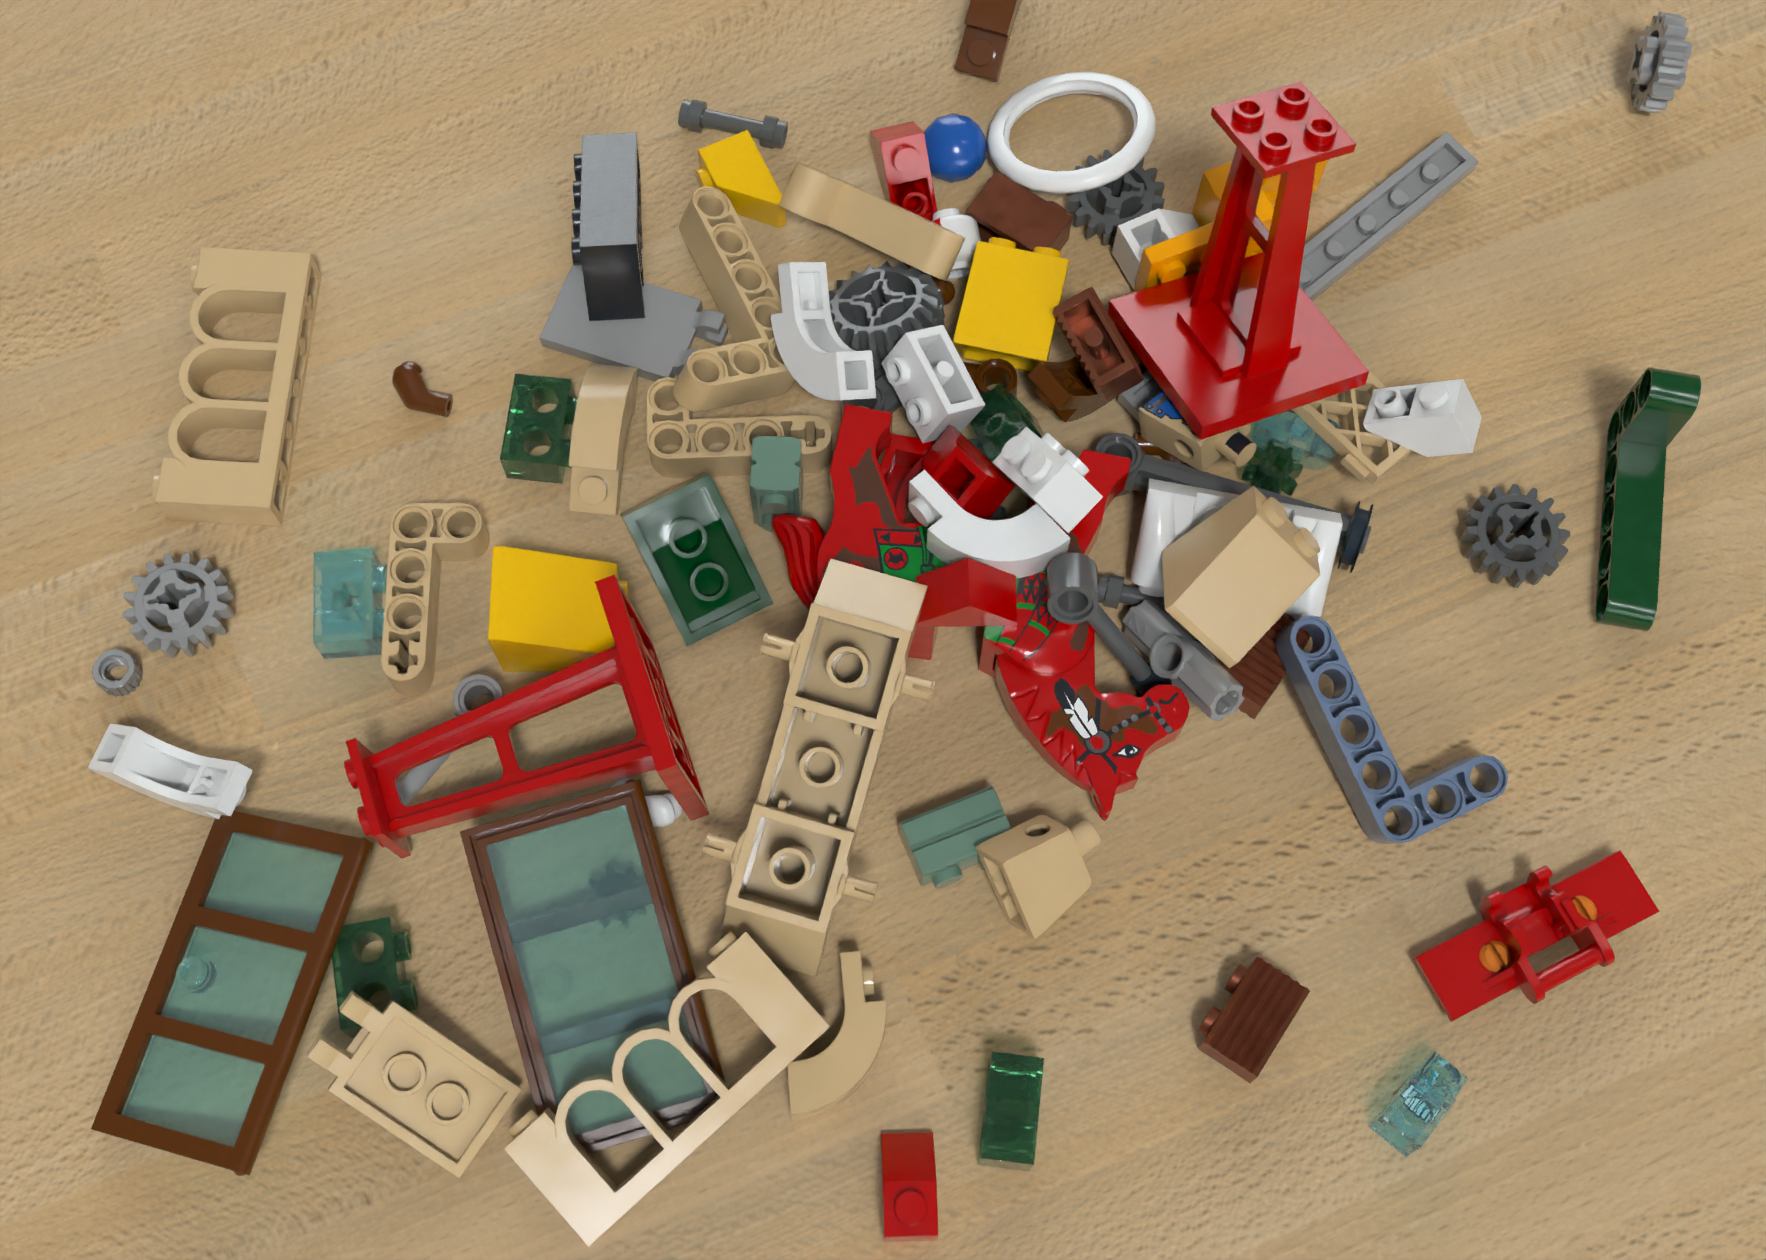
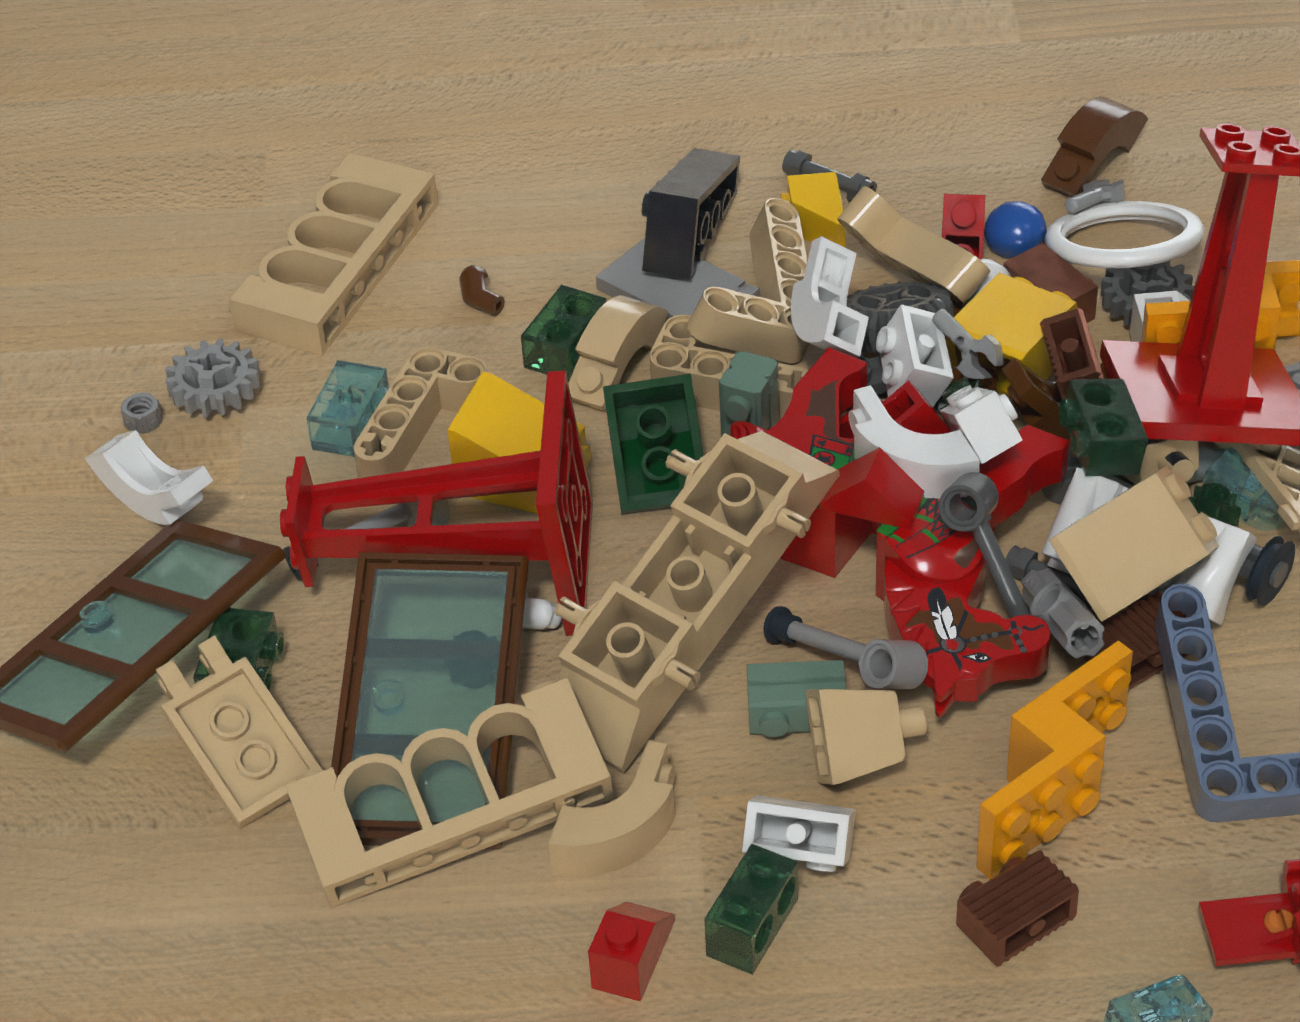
camera: 25 degrees right, 25 degrees down
(987, 358) = (969, 346): none -> light grey bar
(1018, 74) = (1095, 193): none -> light grey bar
(1024, 1007) = (801, 831): none -> white brick
(1042, 790) = (881, 661): none -> light grey piece
(1173, 433) = (1103, 427): none -> clear green brick
(1241, 846) = (1054, 759): none -> light orange bracket

